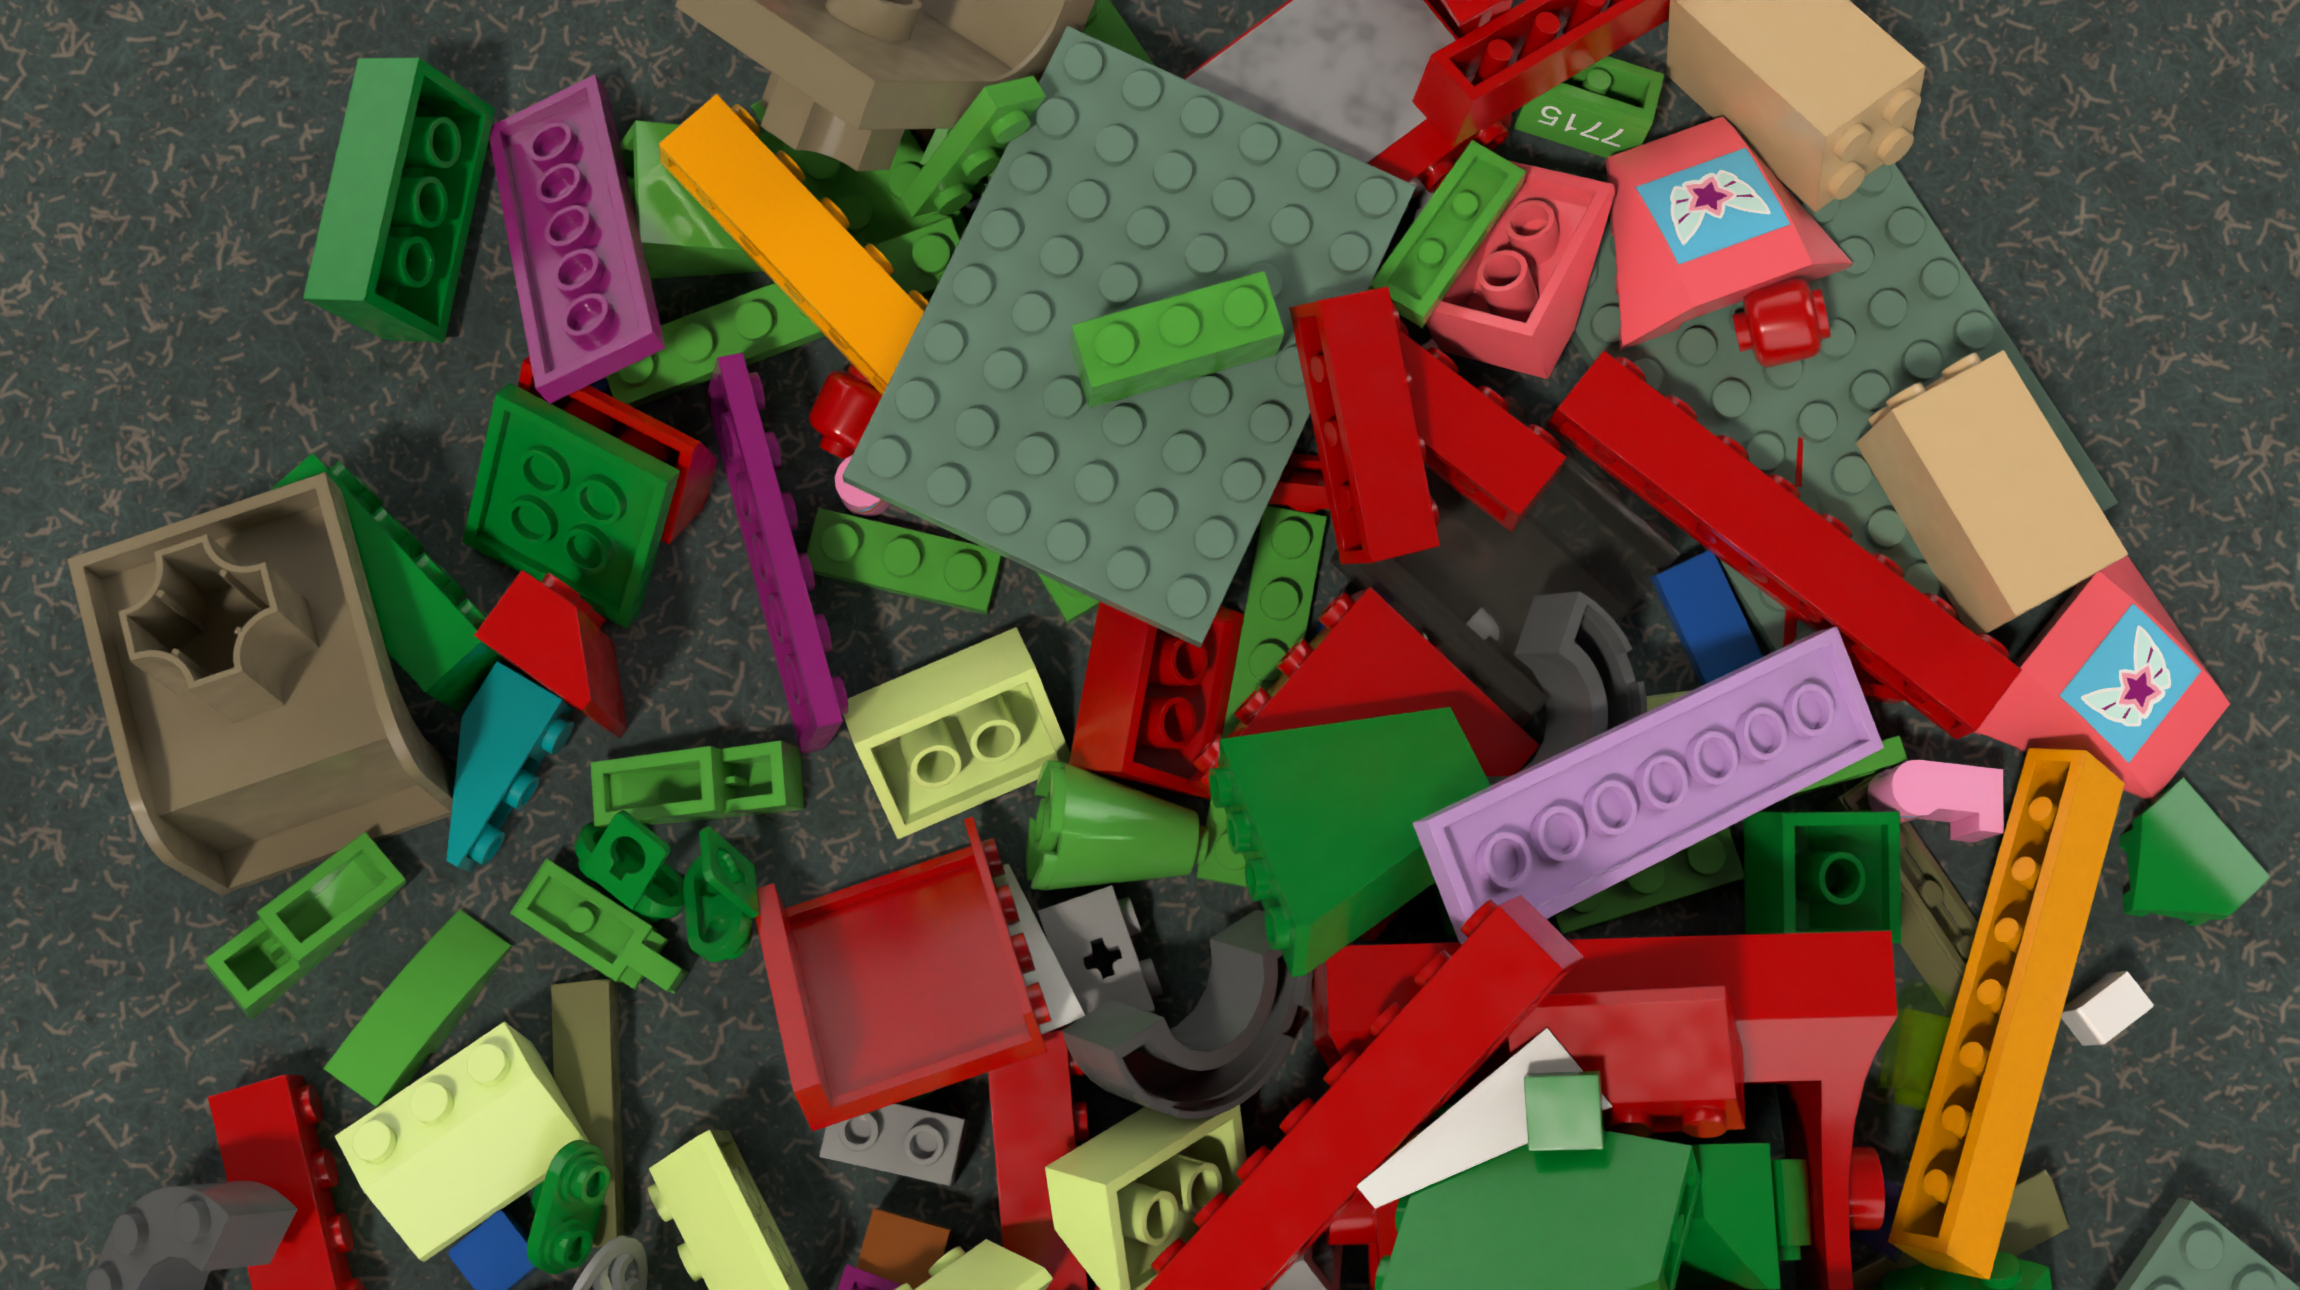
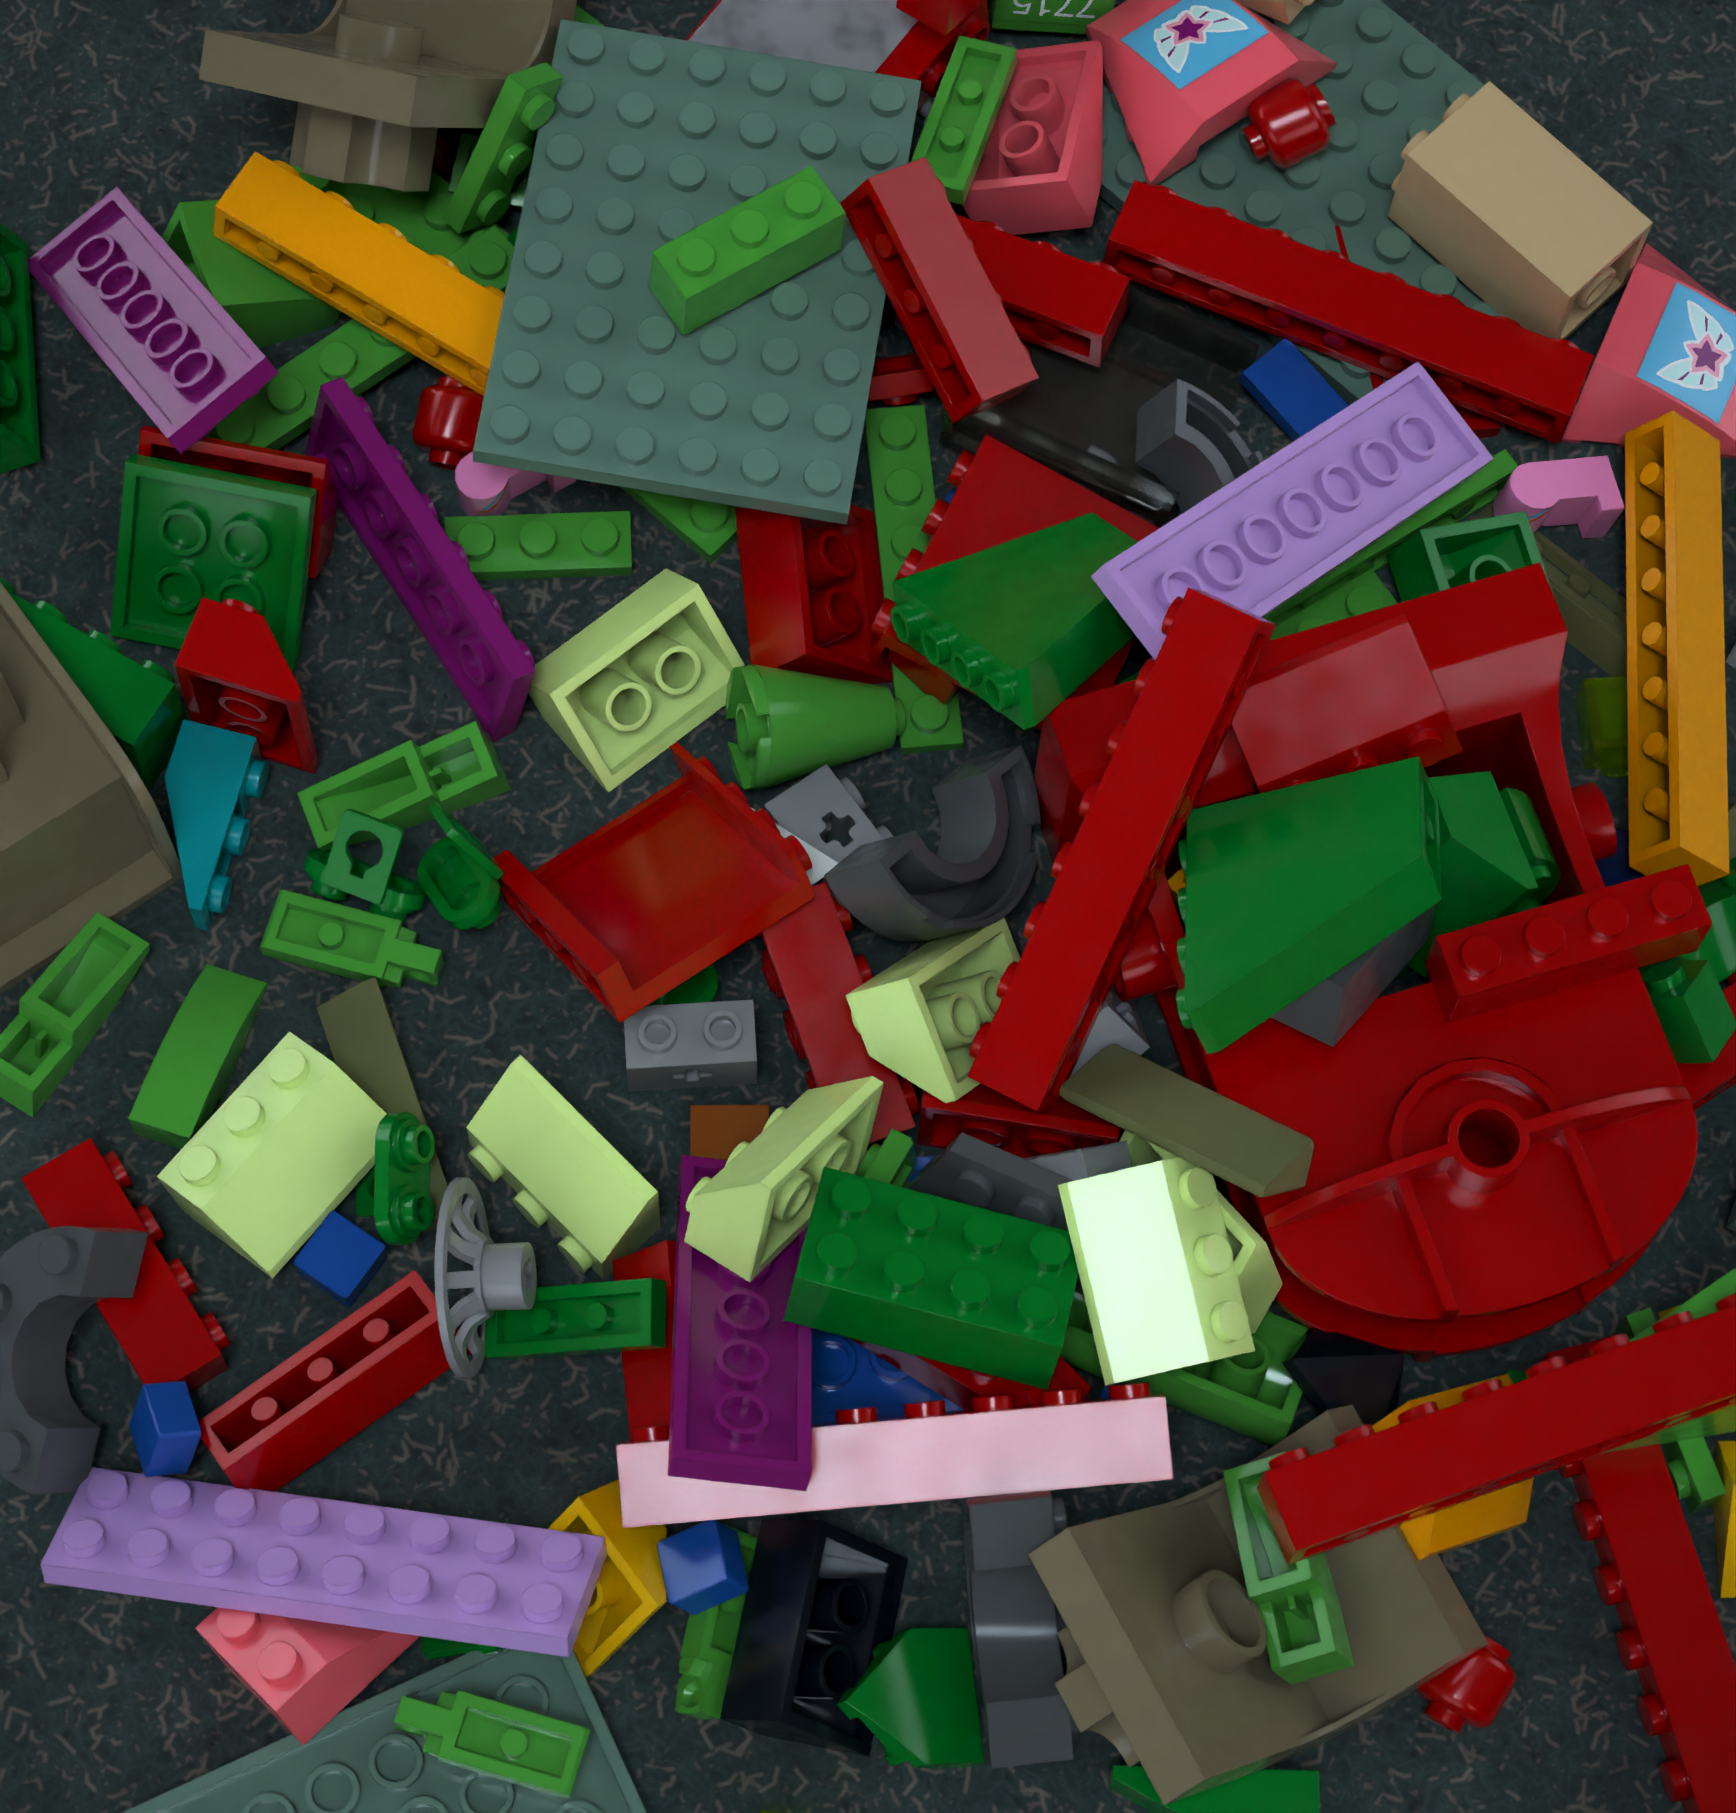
camera: 20 degrees left, 10 degrees down
(1474, 1129) = (1254, 778): white sticker -> none
(1564, 1111) = (1299, 762): tile -> none

